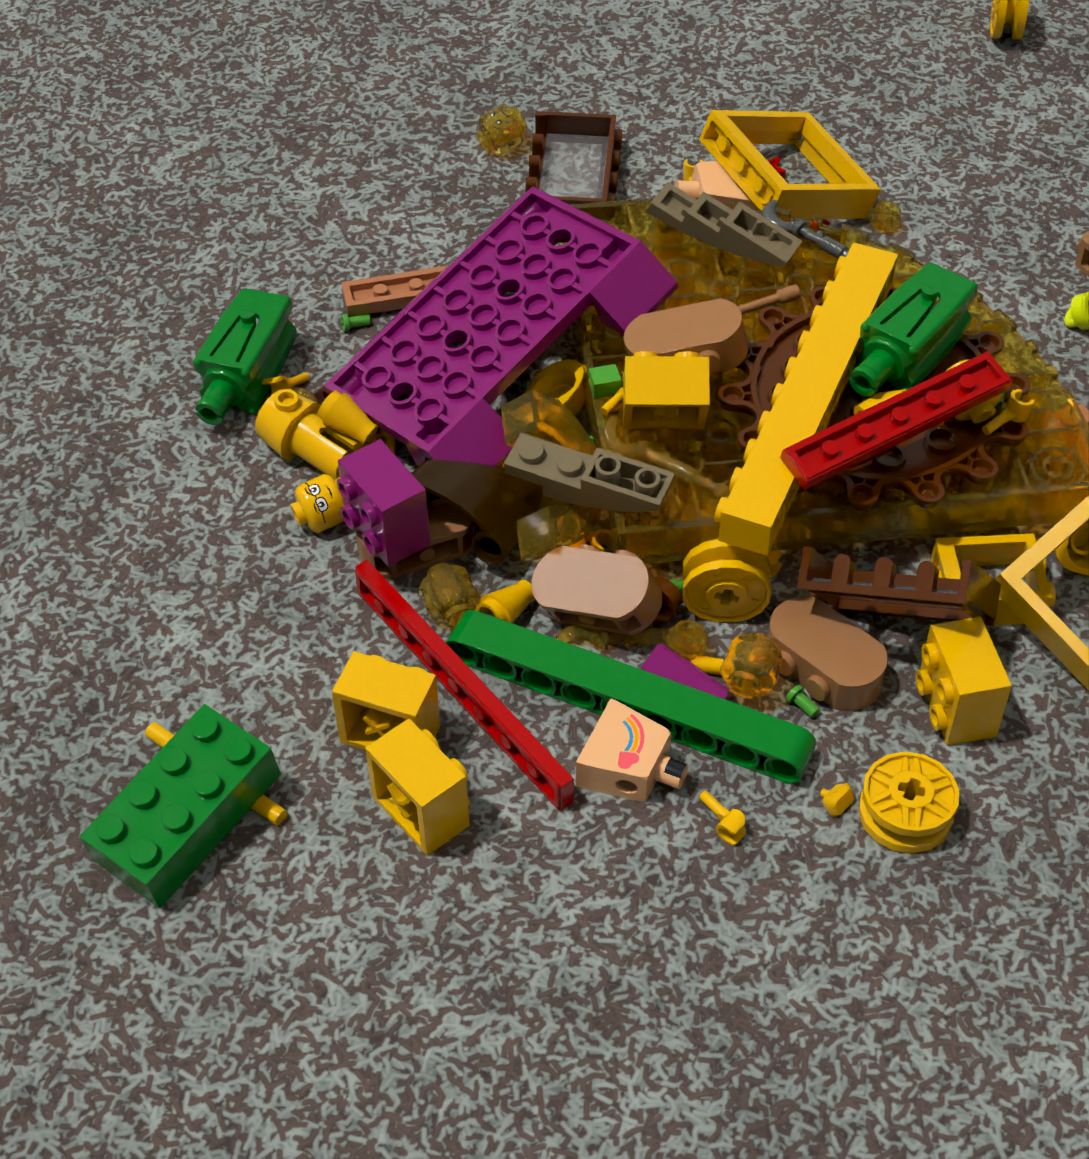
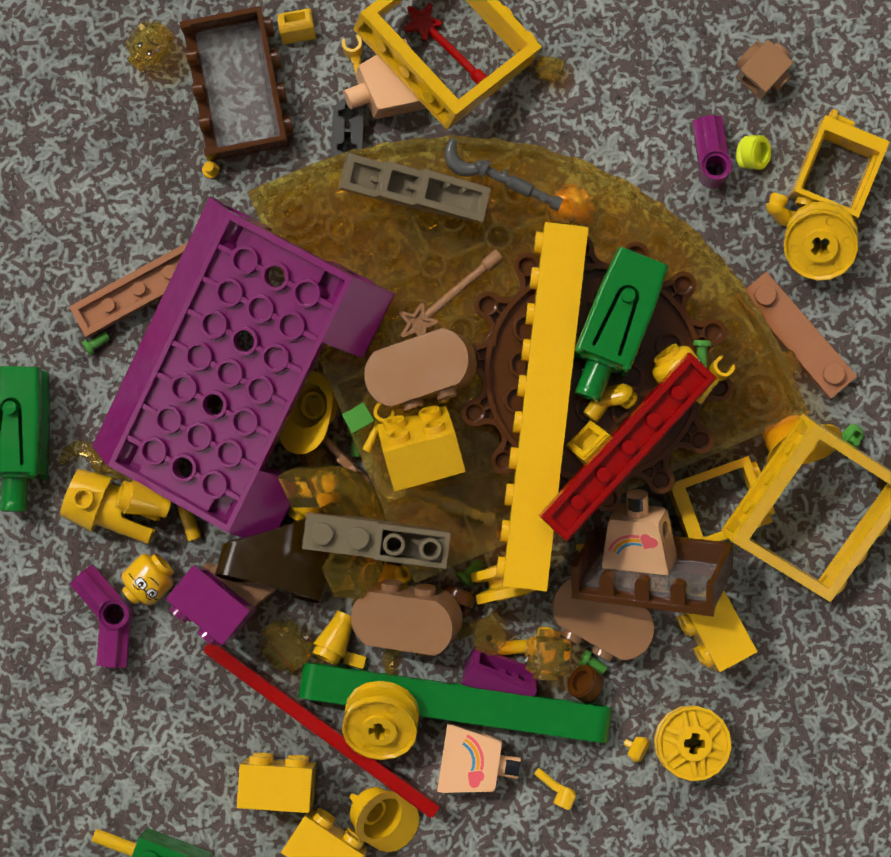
camera: 15 degrees left, 35 degrees up
(270, 530) = (112, 637): none -> magenta piece
(282, 382) = (62, 452): yellow hand -> none
(503, 782) = (383, 819): none -> yellow piece
(526, 690) = (380, 720): none -> yellow wheel
(643, 148) = (296, 26): none -> yellow slope
(793, 709) = (585, 683): none -> reddish brown tile
(891, 539) = (639, 537): none -> light nougat torso
(1039, 303) = (711, 148): none -> magenta piece

